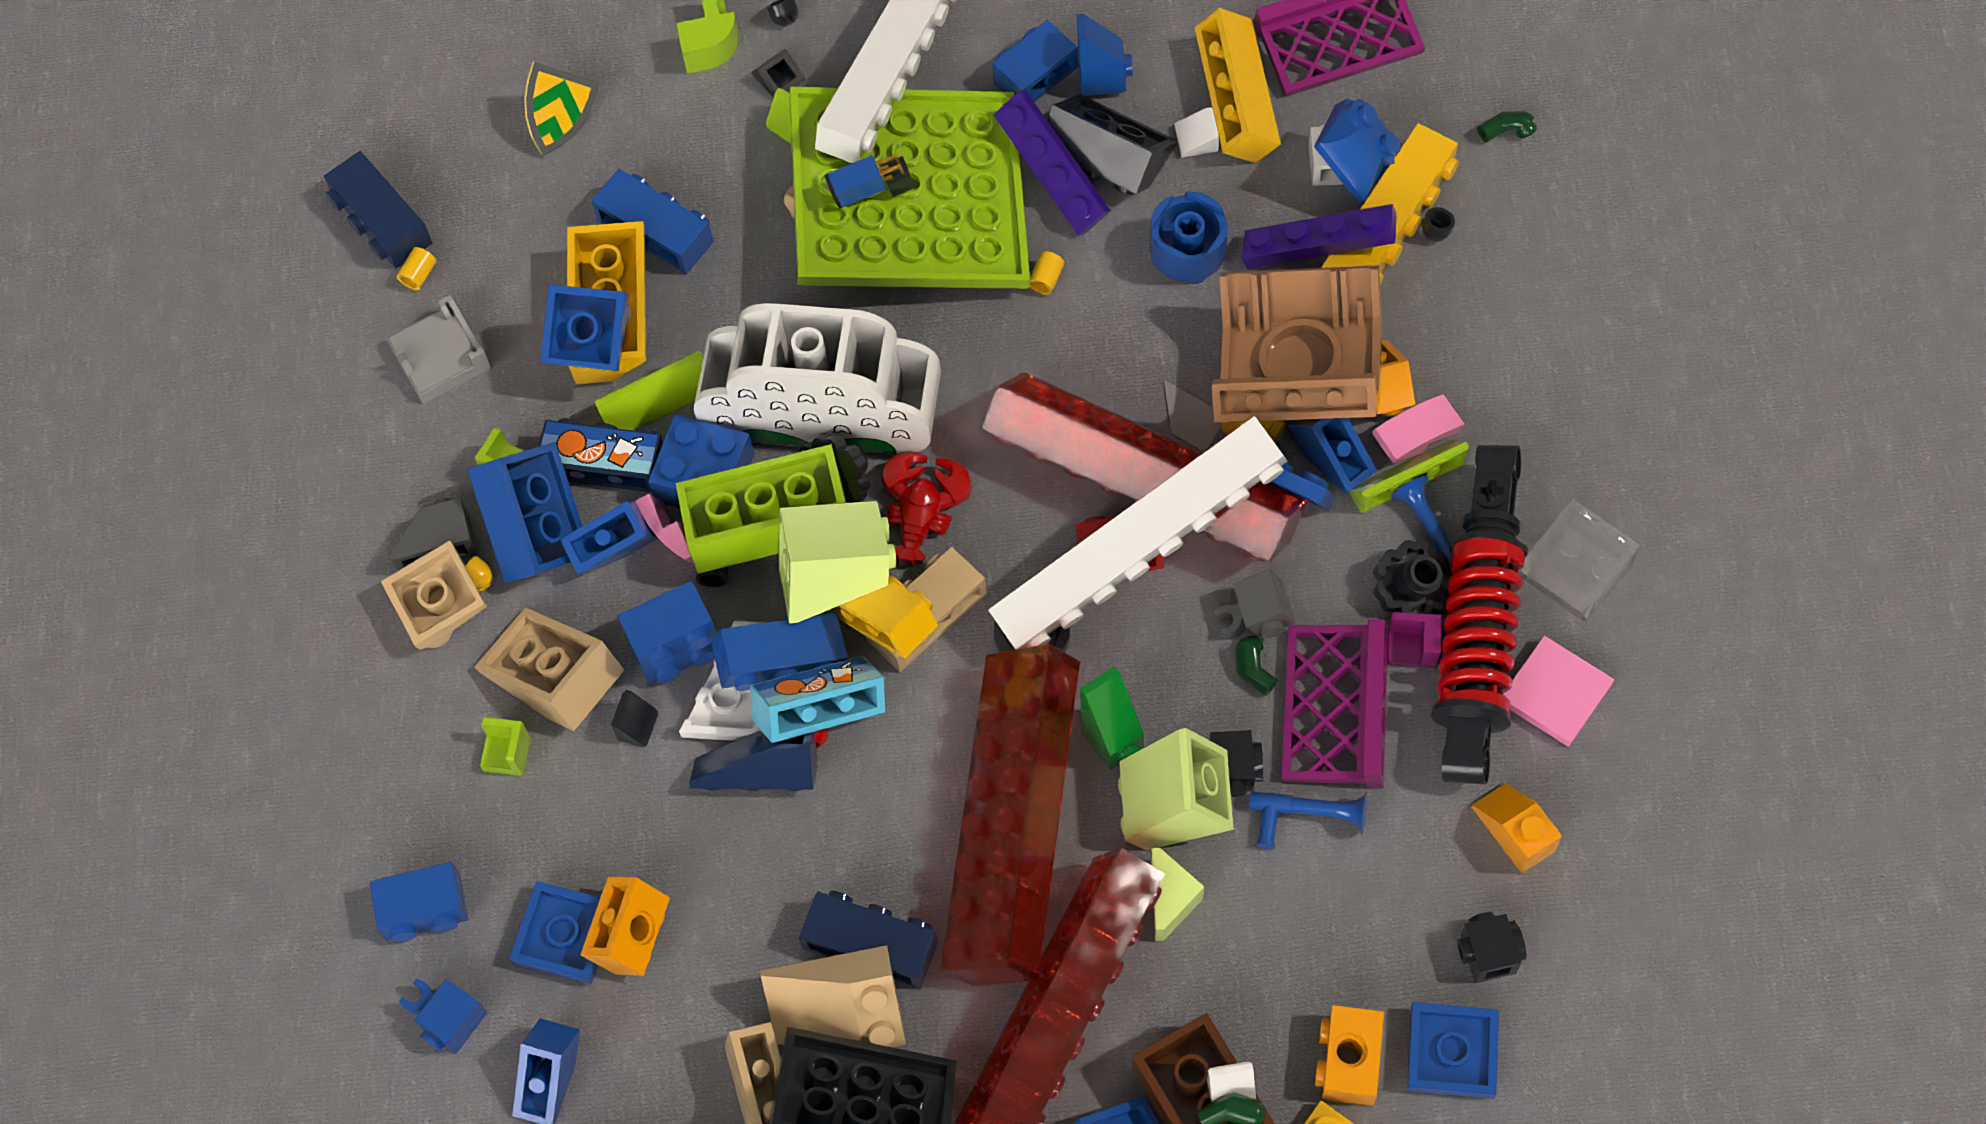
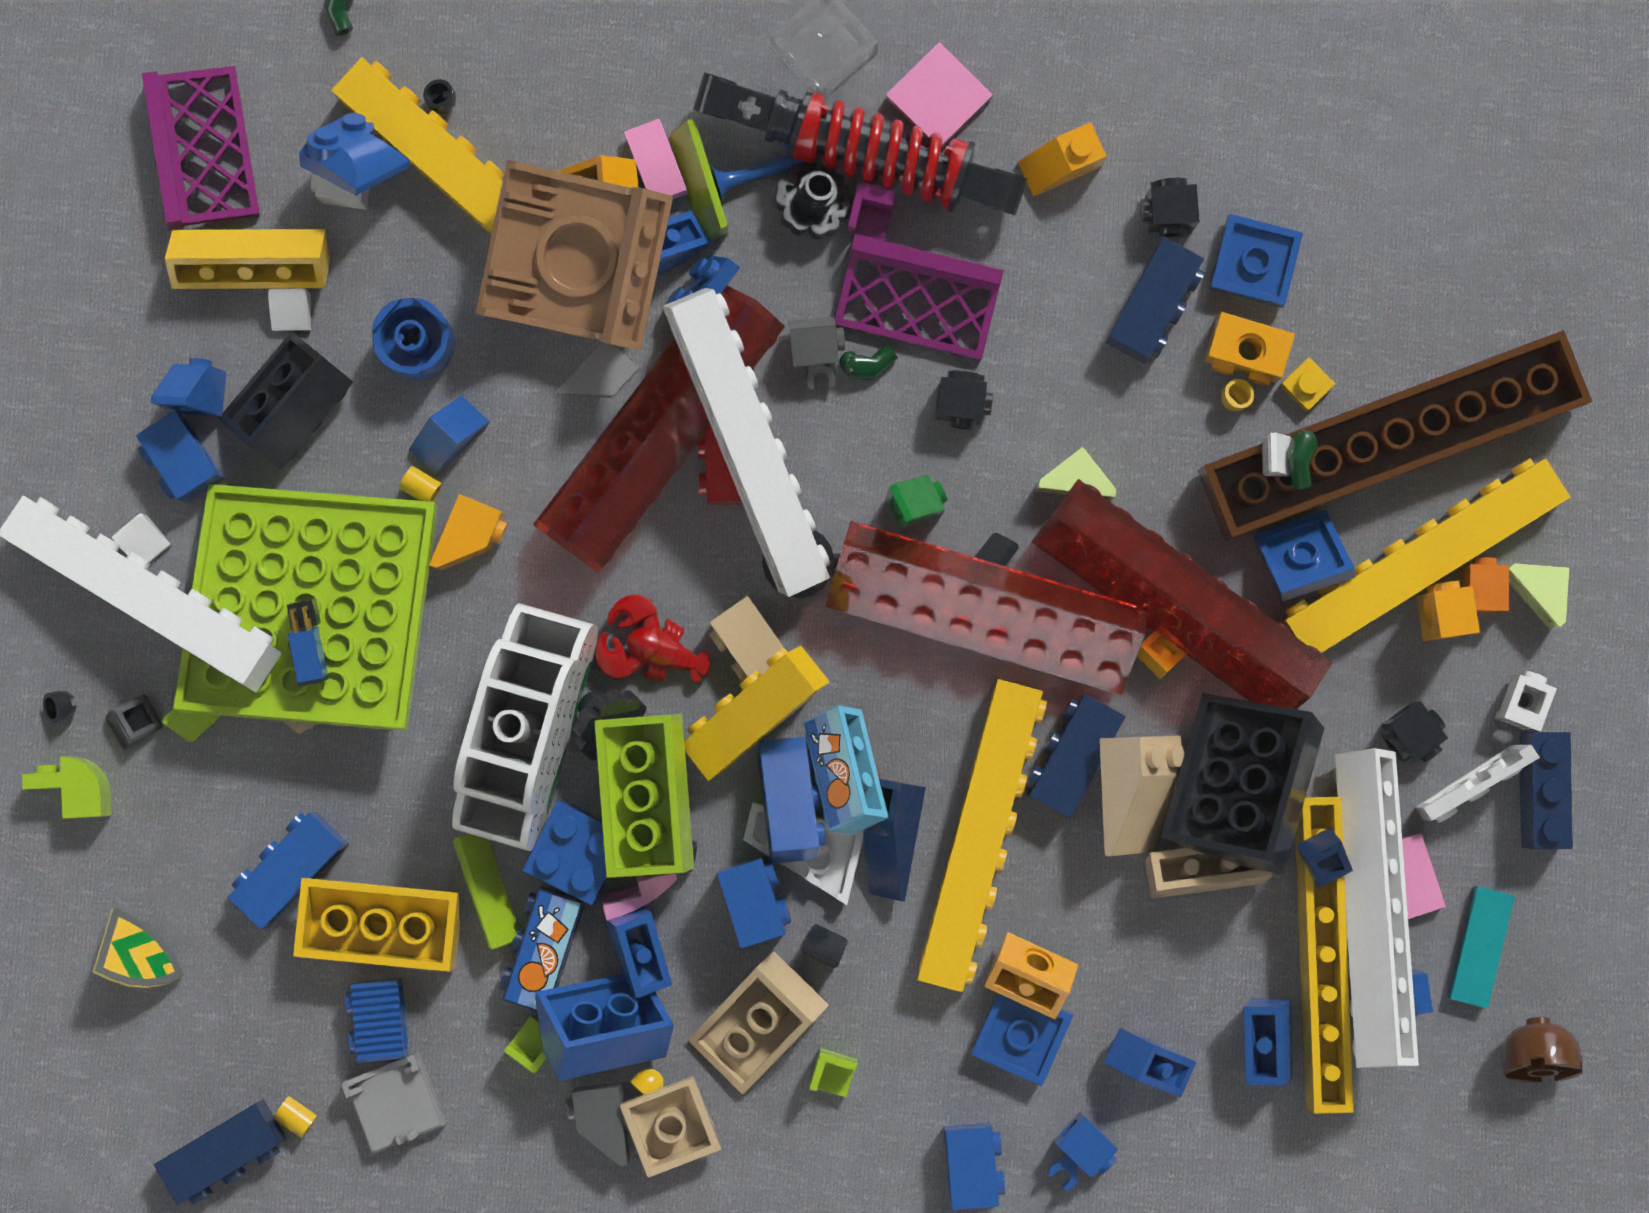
camera: 90 degrees left, 20 degrees up
(511, 321) = (377, 1020): none -> blue brick
(584, 327) = (421, 948): blue slope -> none
(770, 854) = (980, 835): none -> yellow brick
(832, 555) = (717, 734): yellowish green slope -> none
(951, 49) = (141, 538): none -> white slope
(992, 1011) = (1159, 655): none -> yellow plate
(1006, 319) = (468, 533): none -> light orange slope
(1052, 162) = (303, 459): dark purple plate -> none
(1076, 828) = (997, 549): none -> black slope
(1103, 288) = (447, 434): none -> blue slope
(1175, 791) = (994, 456): yellowish green slope -> none
(1272, 804) = (1004, 369): blue piece -> none
(1302, 1058) = (1240, 391): none -> yellow hinge
(1319, 236) = (441, 212): dark purple plate -> none
(1383, 946) = (1156, 301): none -> dark blue brick

